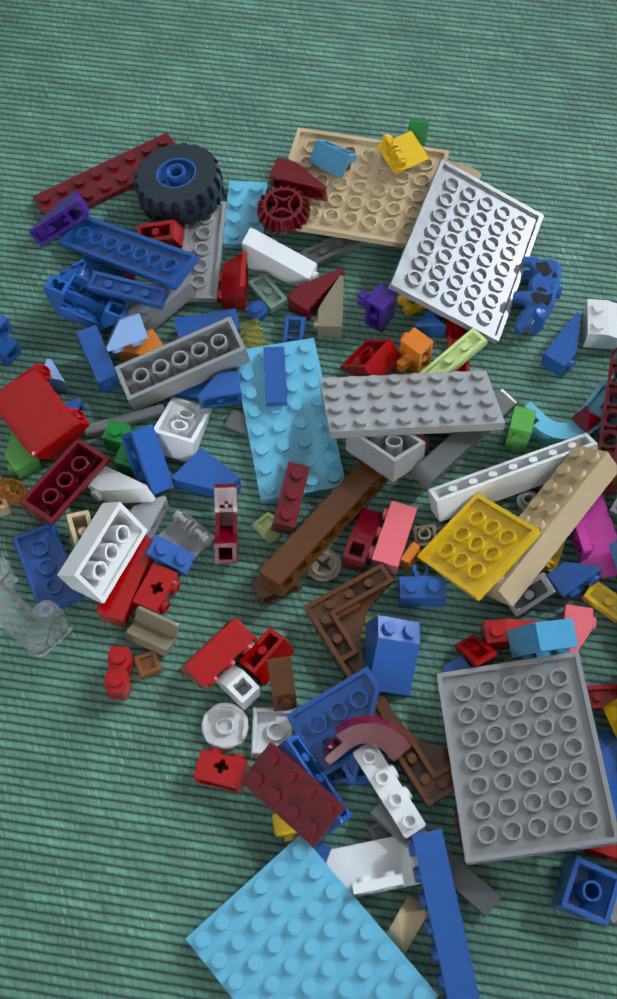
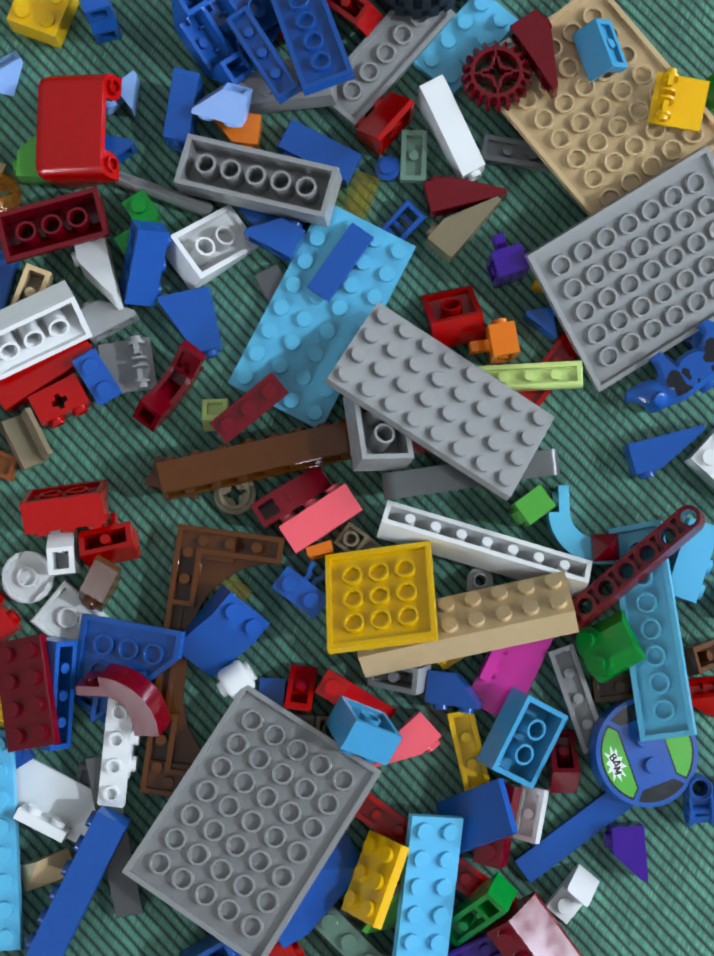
camera: 30 degrees right, 20 degrees up
(425, 680) = (235, 677): none -> white head

